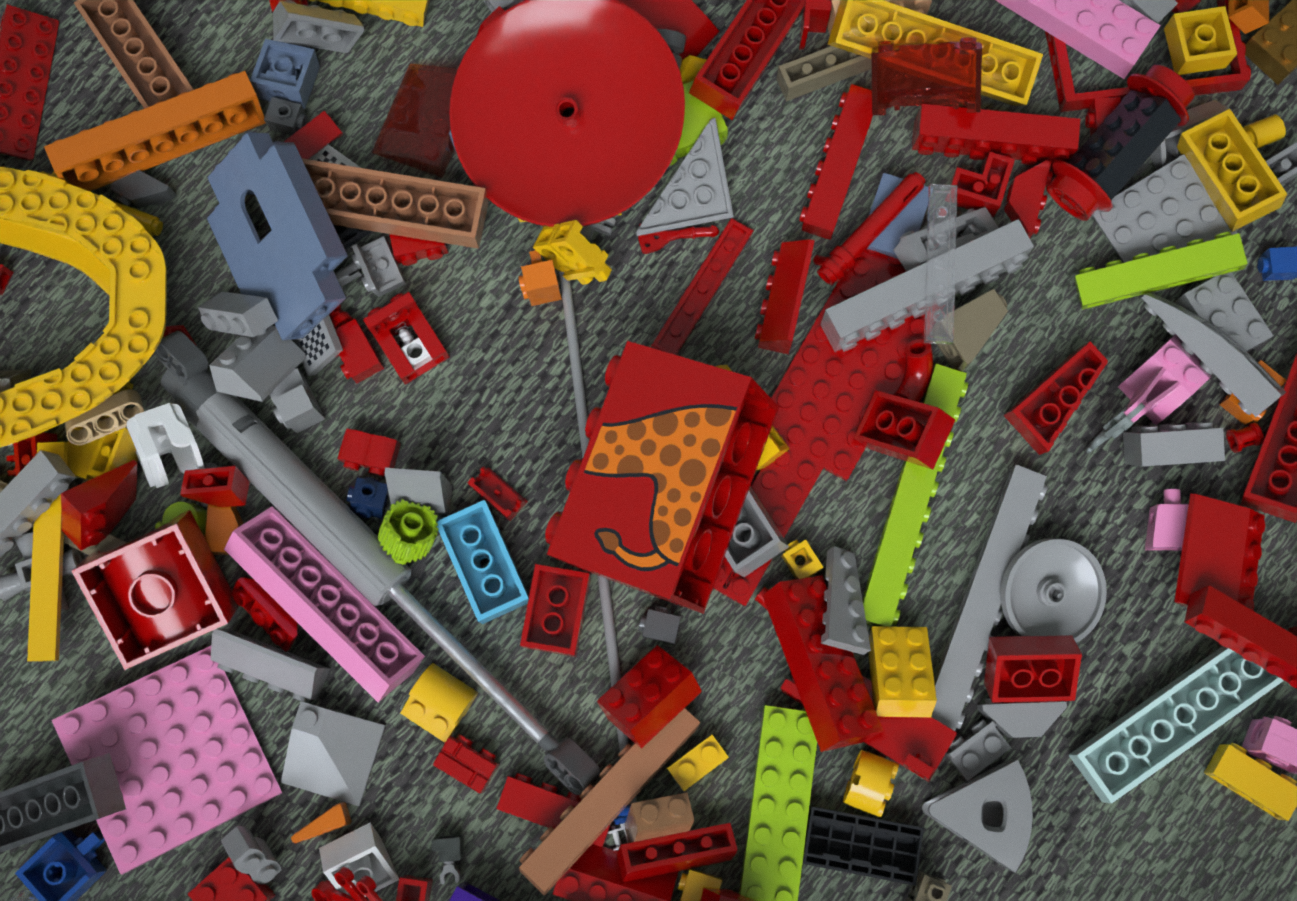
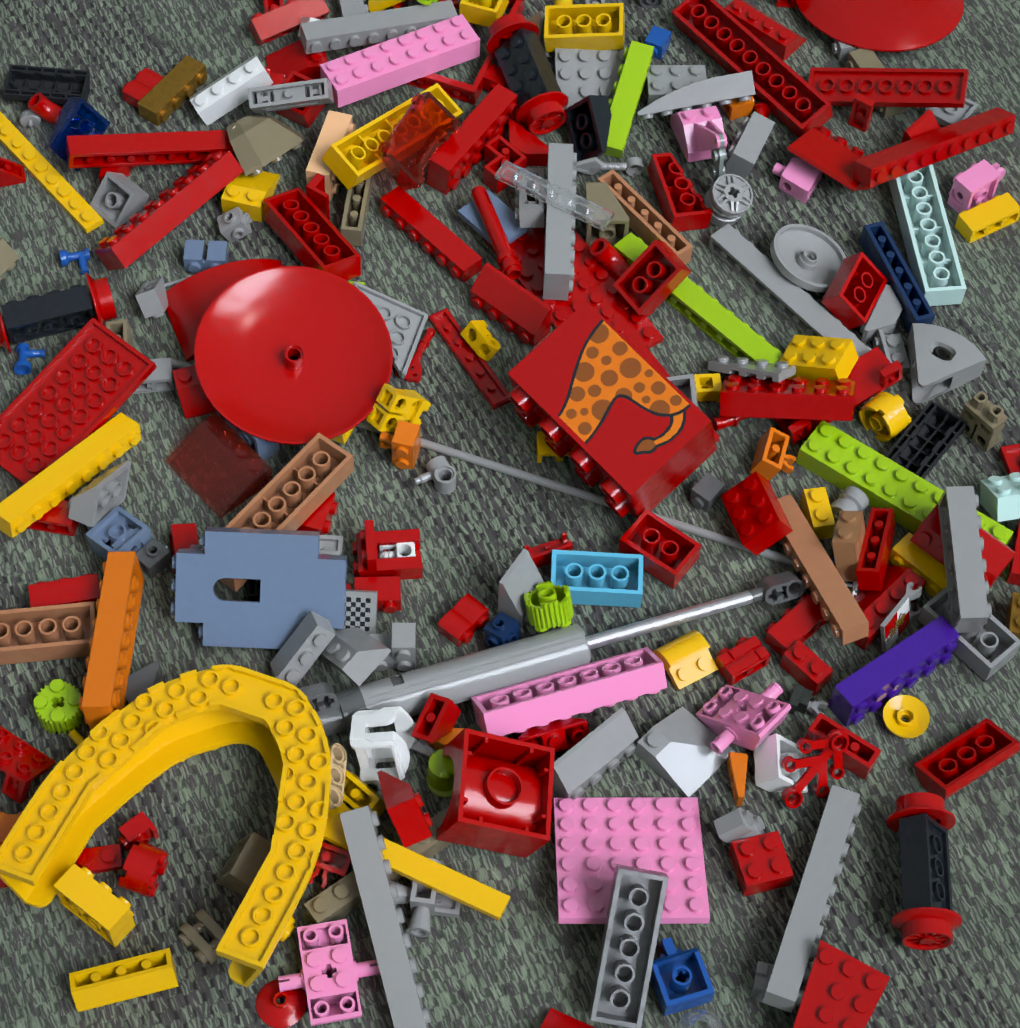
camera: 70 degrees left, 20 degrees down
(73, 118) = (58, 707): none -> lime brick
(197, 56) = (65, 591): none -> red brick
(387, 799) = (743, 716): none -> bright pink slope
(490, 839) = (806, 667): none -> red brick
(536, 331) = (439, 469): none -> light grey piece
(725, 288) = (481, 339): none -> yellow leg
(725, 794) = (849, 500): none -> light grey wheel
(746, 675) = (771, 455): none -> orange brick
(996, 378) = (645, 219): none -> nougat brick
(1070, 325) = (594, 165): none -> light grey piece
(1082, 444) = (728, 199): none -> light grey wheel
(1088, 252) = (589, 126): none -> black slope
(1089, 708) = (887, 258): none -> dark blue brick

